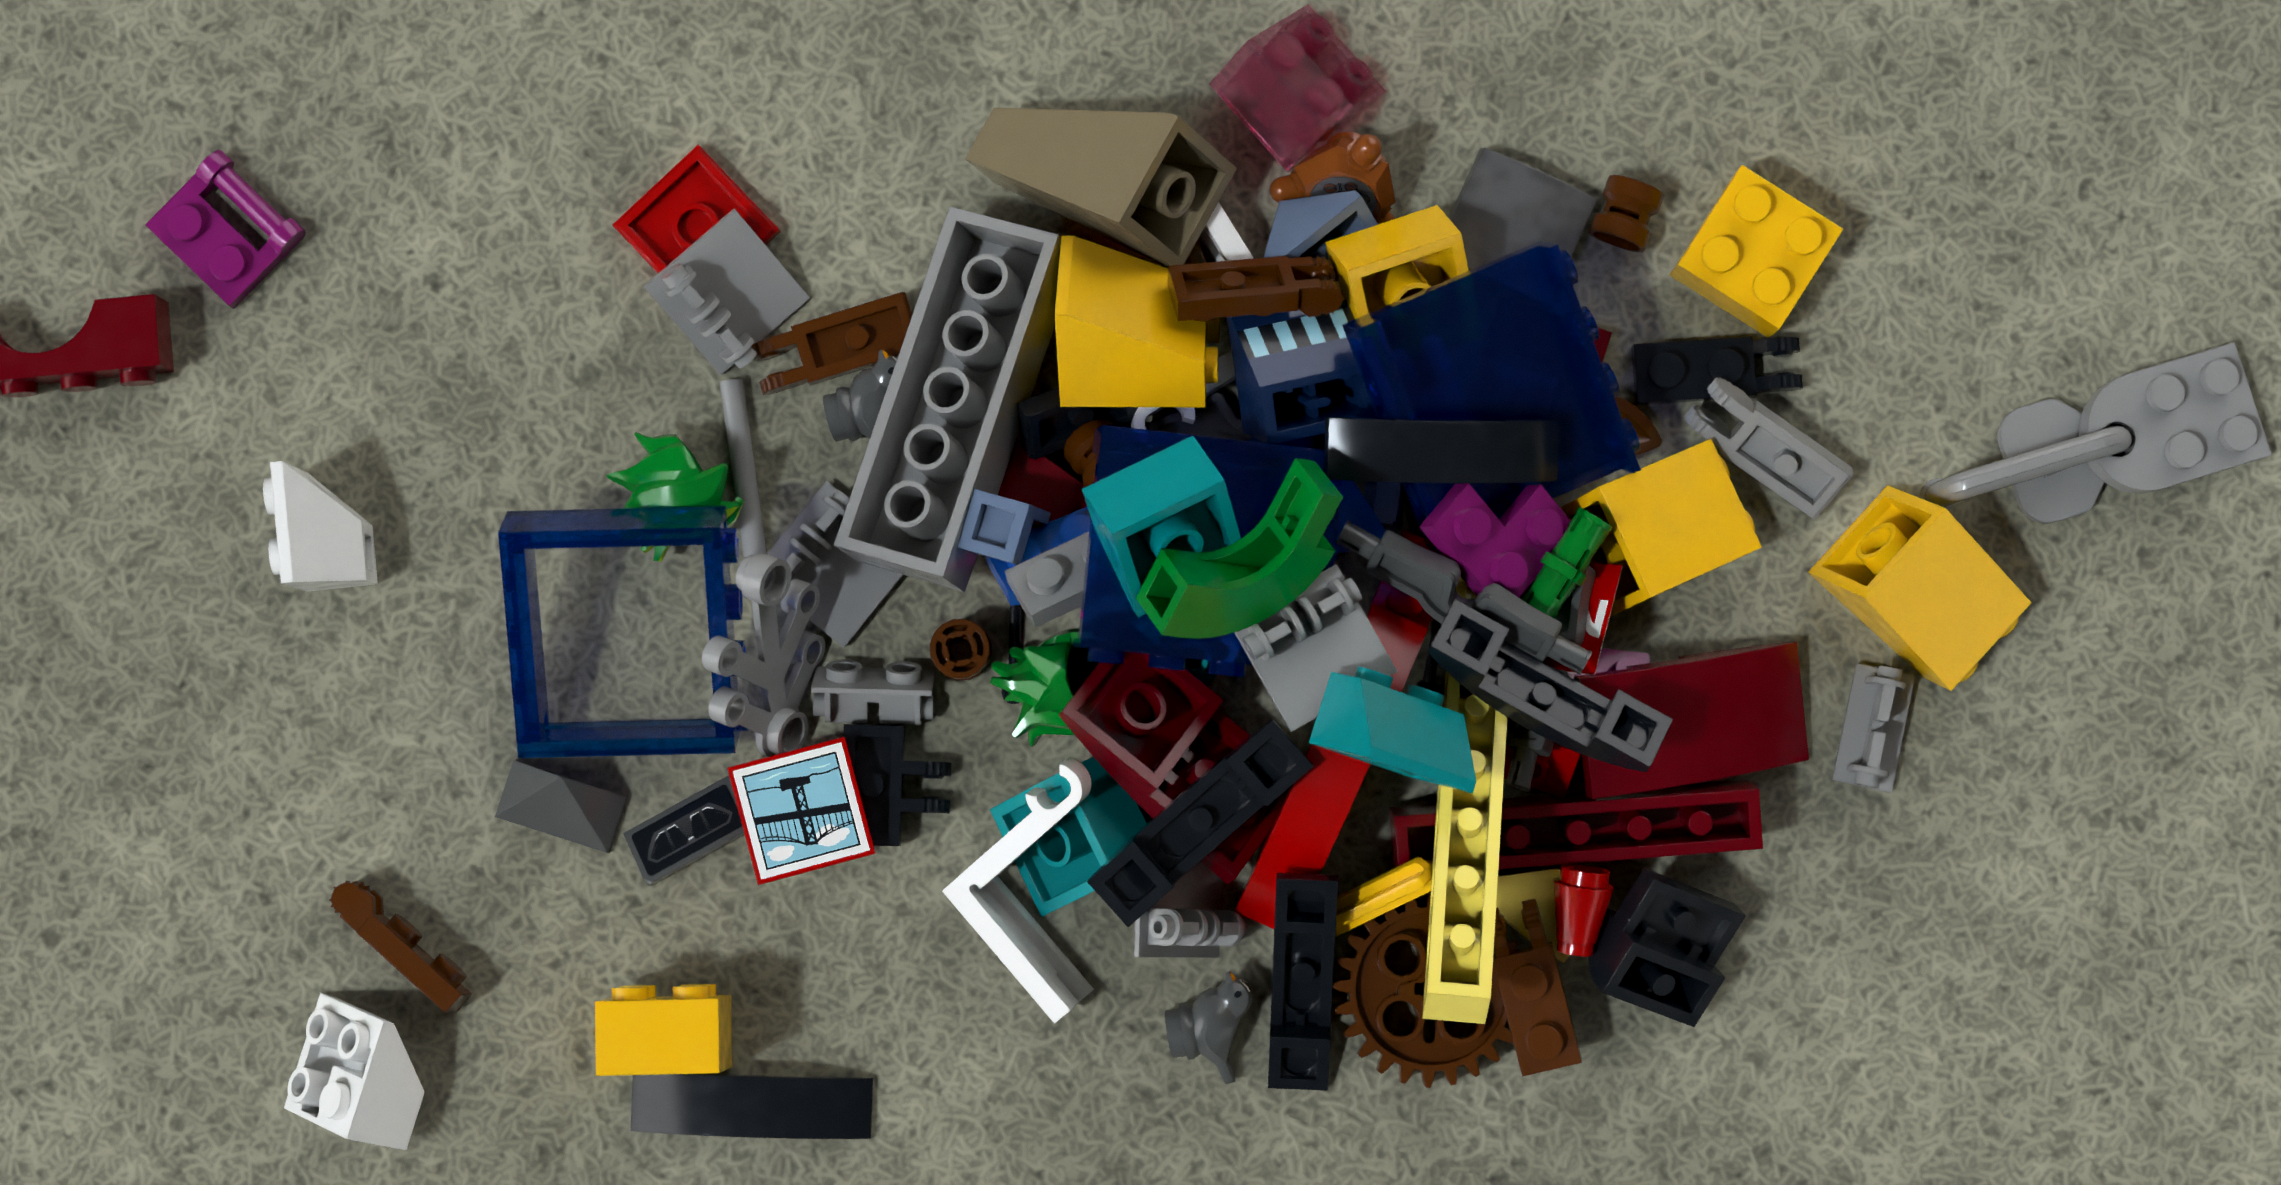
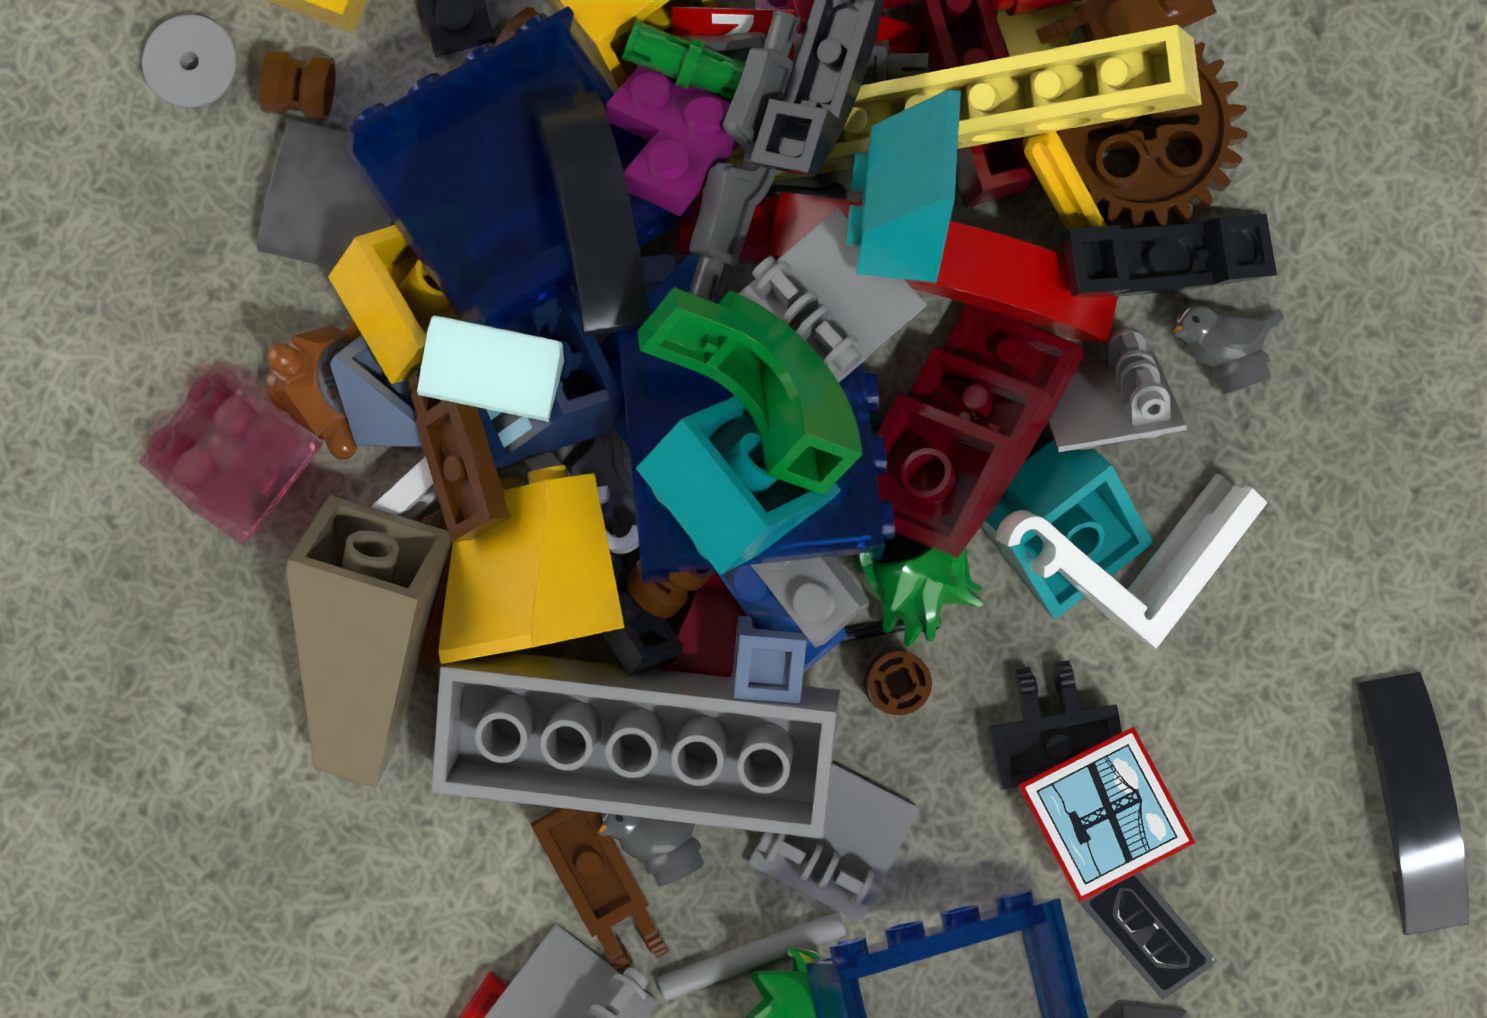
camera: 110 degrees left, 0 degrees up
(663, 1033) = (1370, 910): yellow brick -> none
(780, 725) = (1016, 856): light grey plant -> none
(900, 689) = (950, 738): light grey hinge -> none
(1199, 821) = (1036, 389): black slope -> none
(1313, 328) = (490, 368): none -> light aqua slope
(1682, 103) = (177, 44): none -> light grey piece

